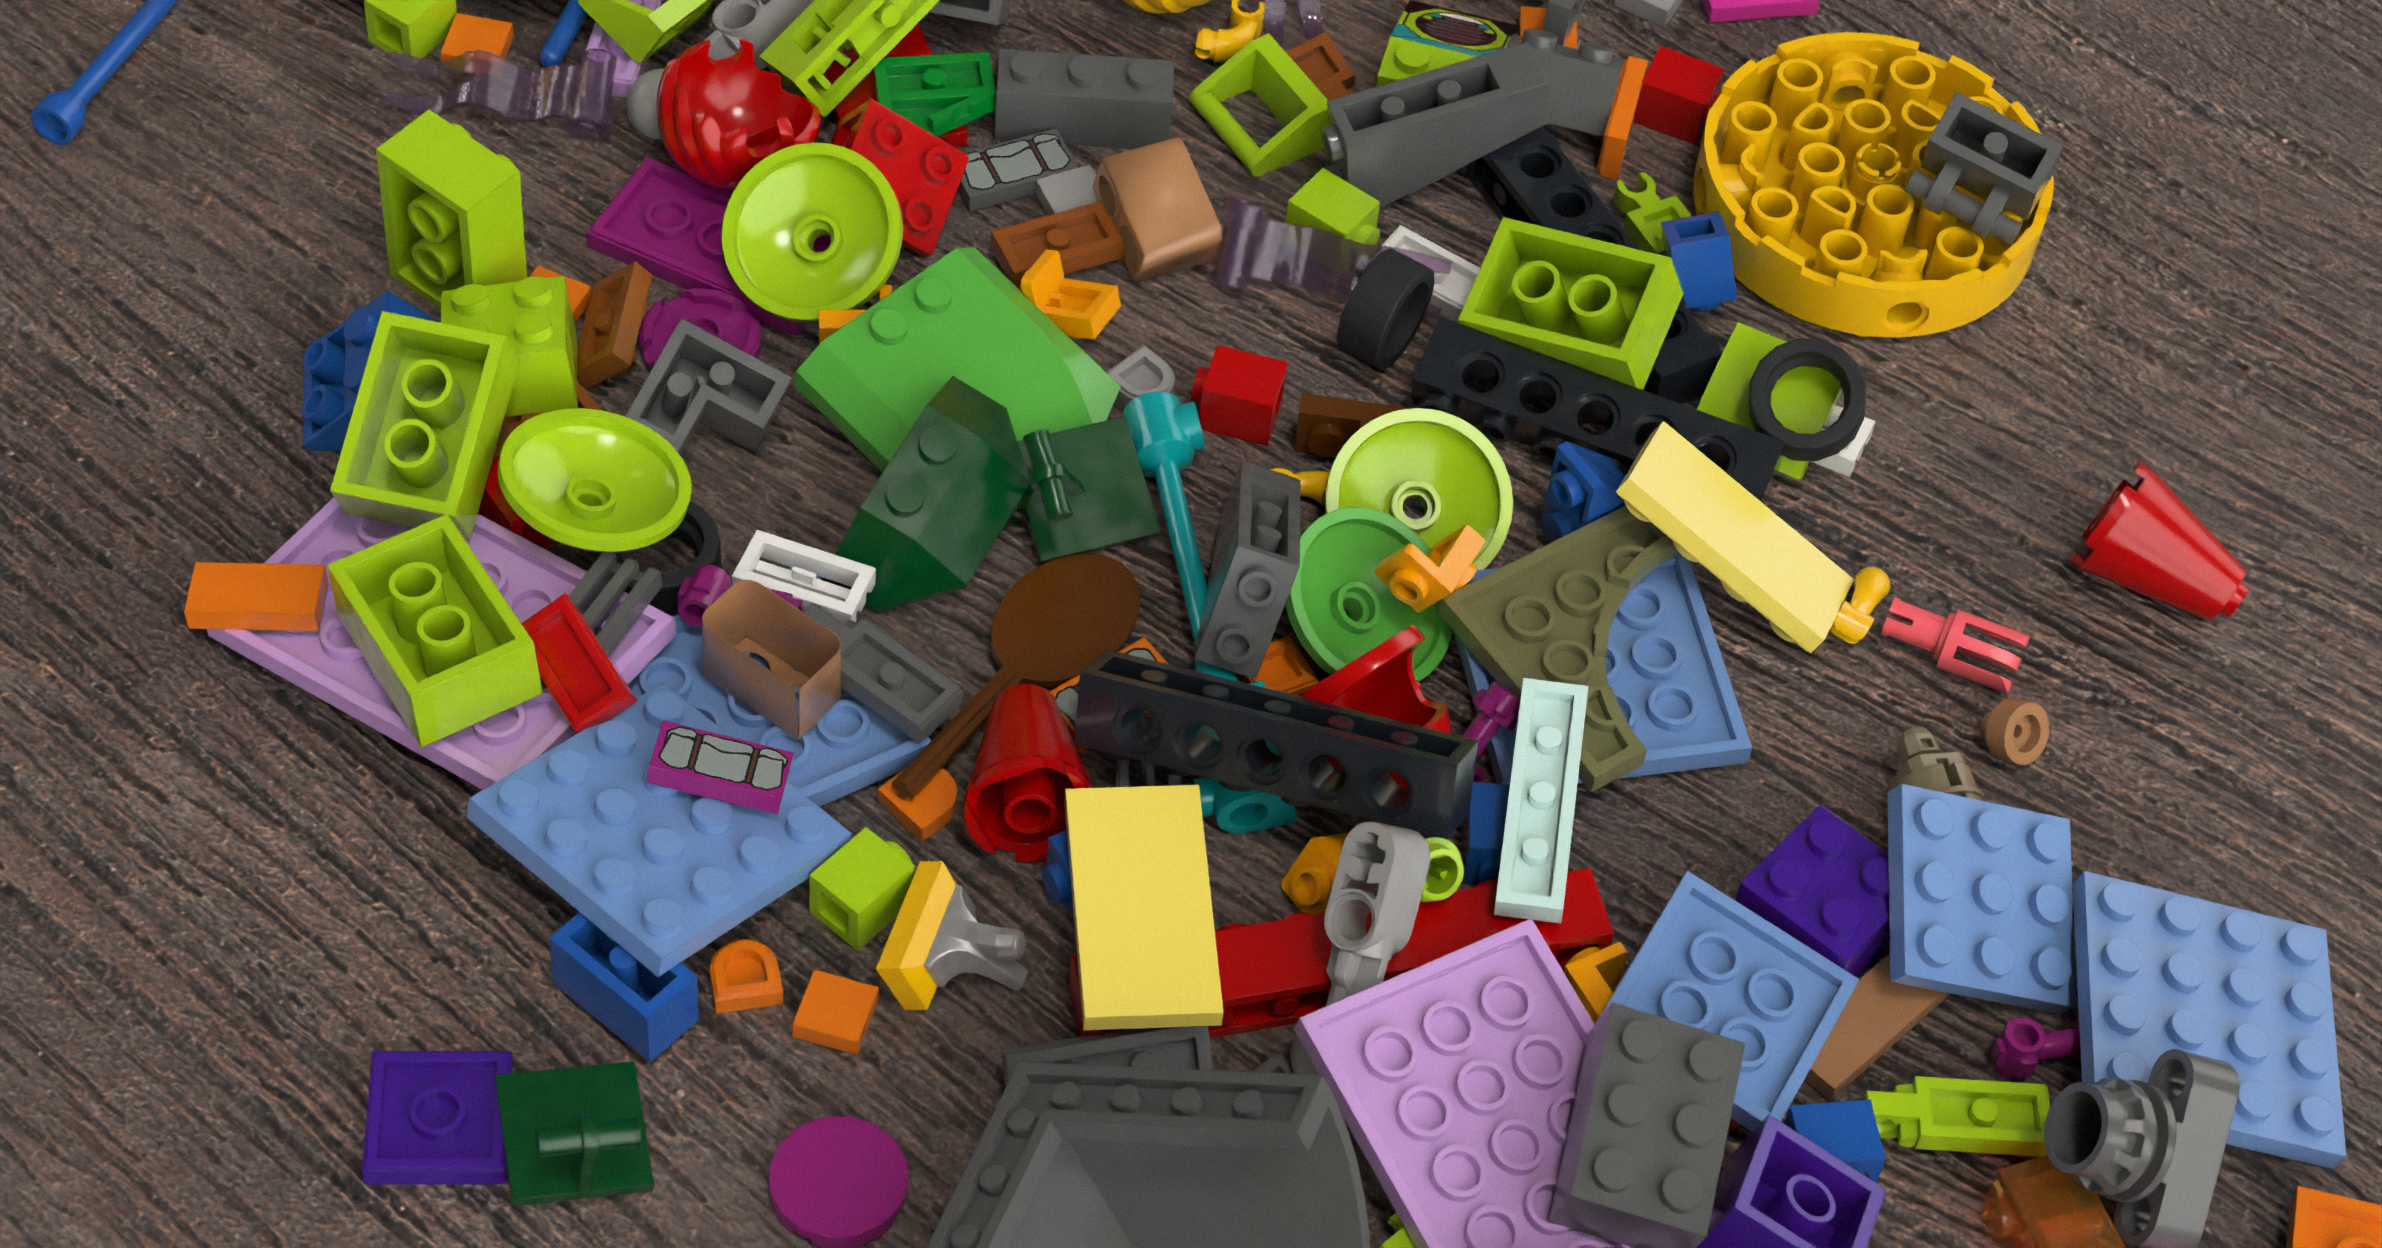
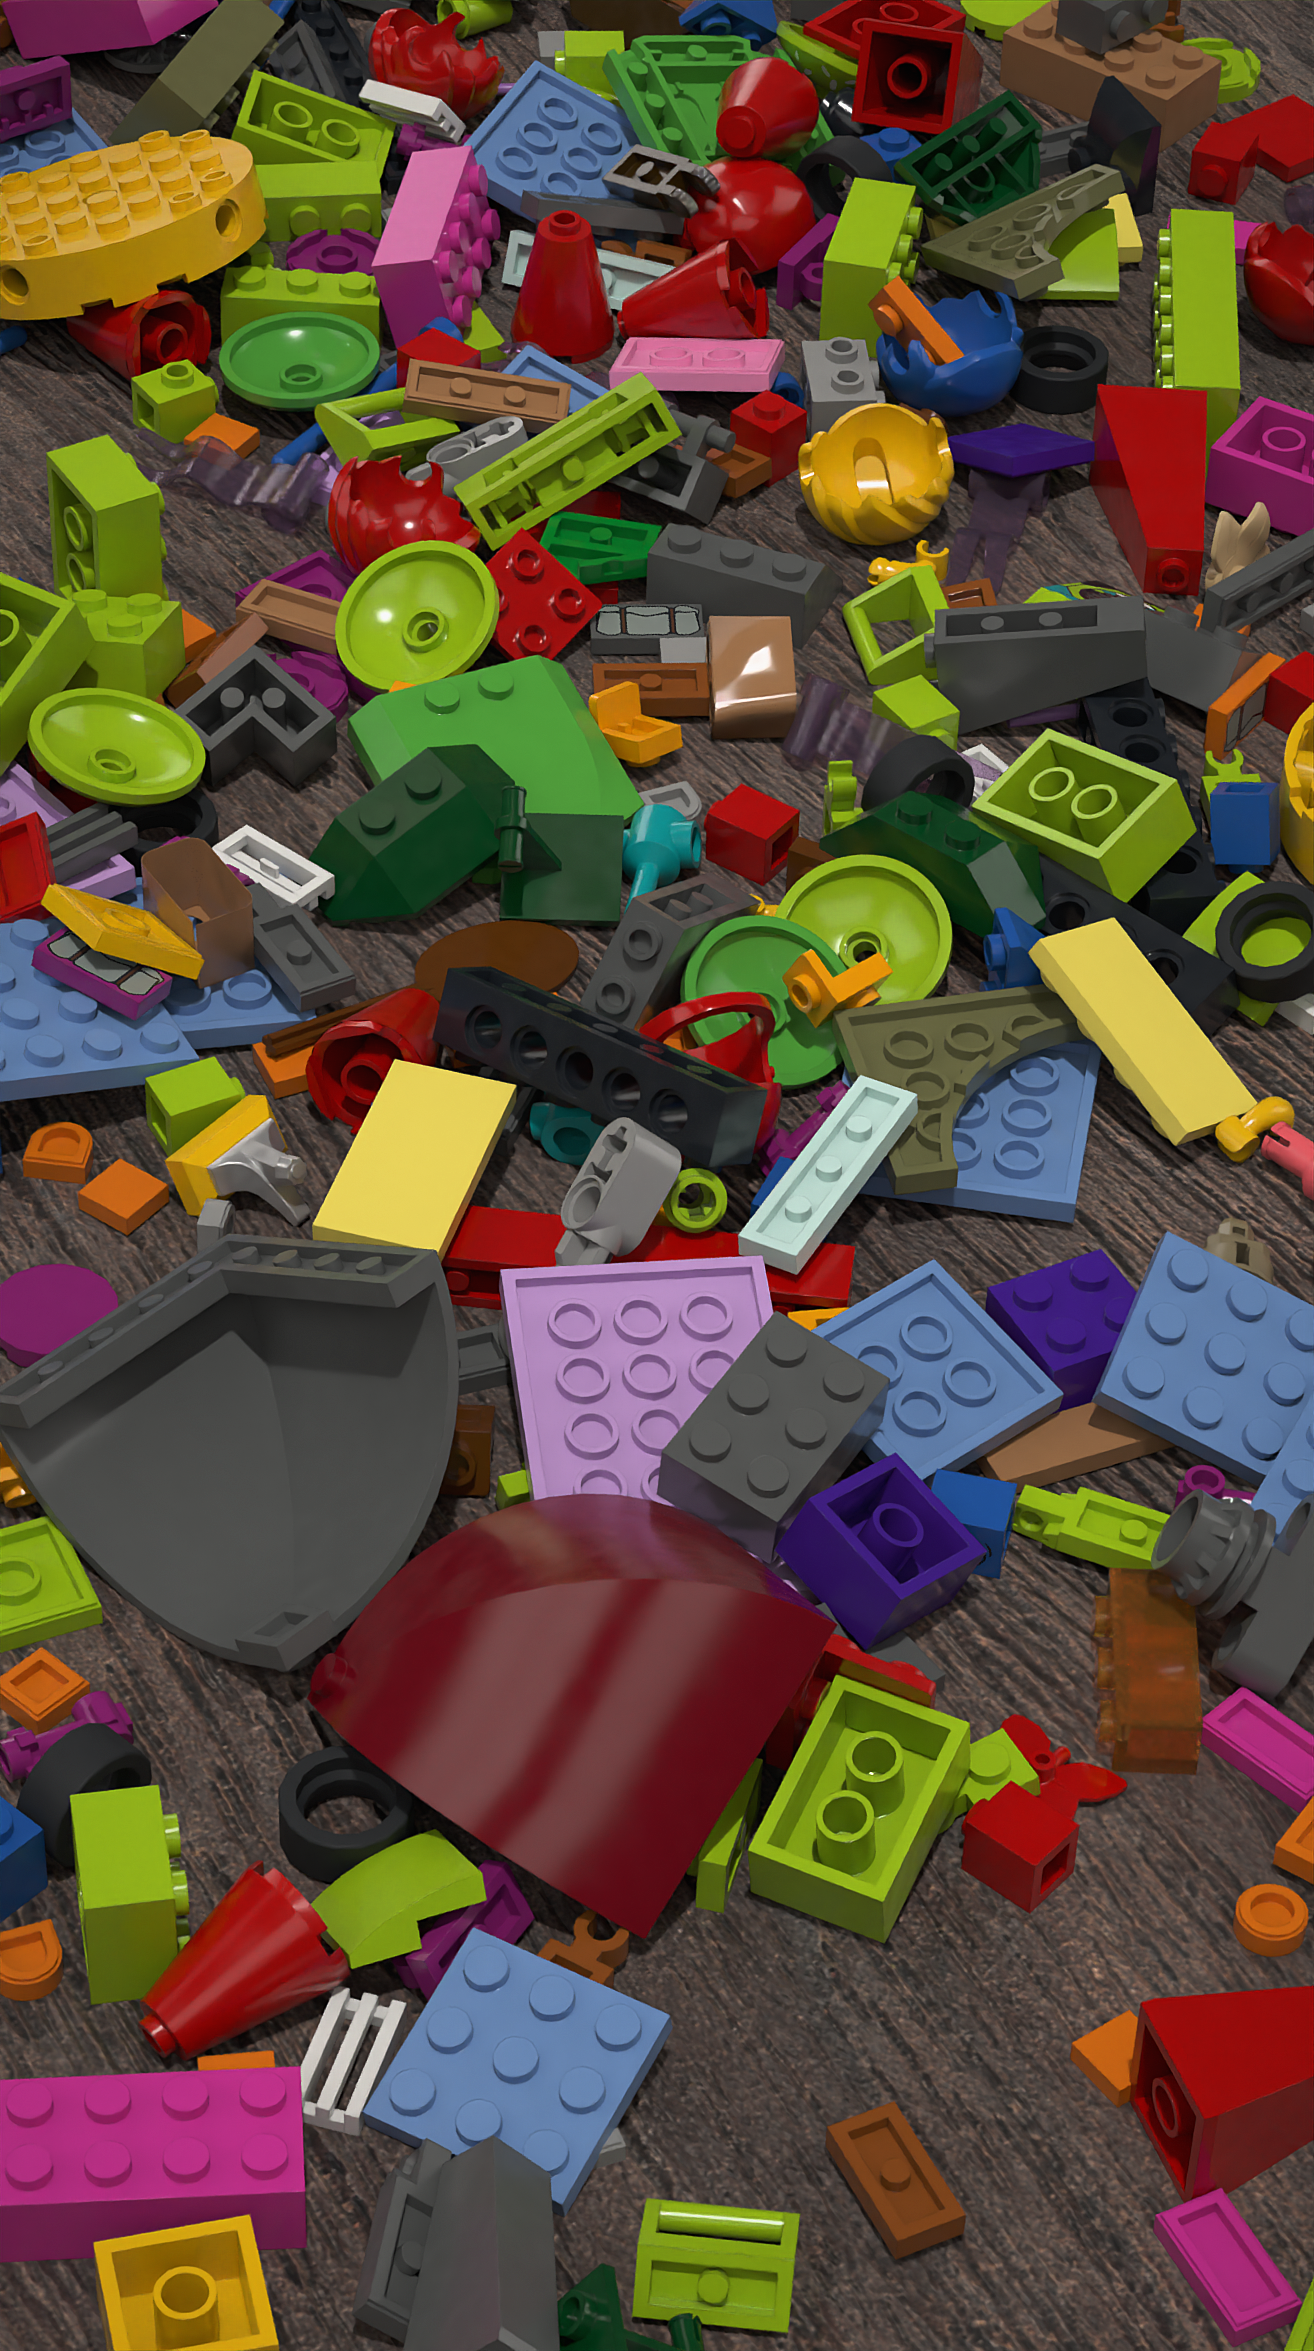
camera: 25 degrees right, 10 degrees down
(669, 249) = (293, 615): none -> medium nougat tile
(718, 712) = (122, 931): none -> yellow tile
(957, 1037) = (215, 1222): none -> light grey tile
(1319, 353) = (839, 796): none -> lime plate
(1478, 377) = (958, 851): none -> dark green wedge

